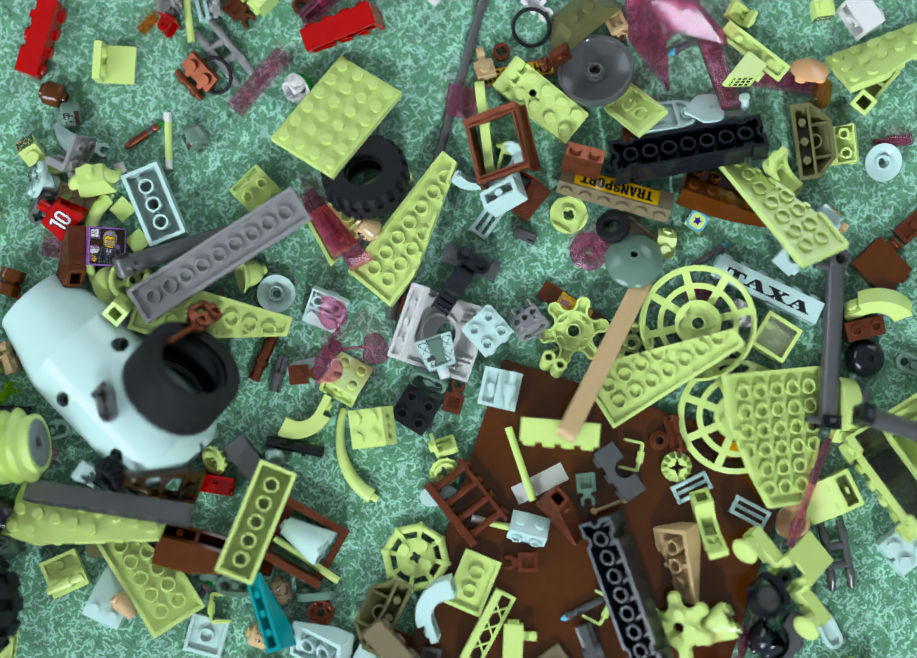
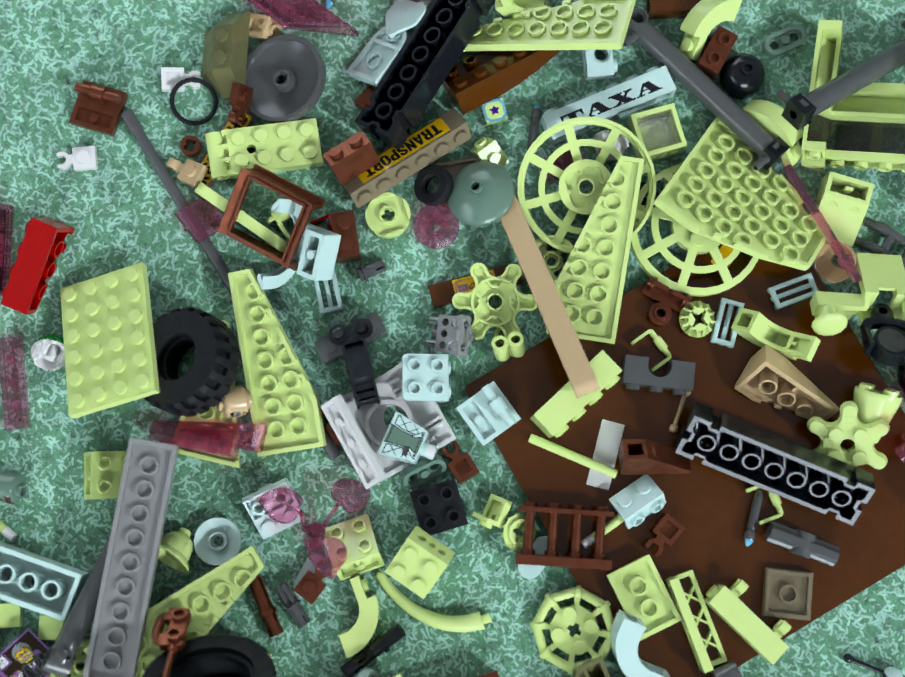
camera: 55 degrees left, 5 degrees down
(586, 484) = (643, 413): sand green plate -> none
(636, 111) = (351, 74): yellowish green plate -> none

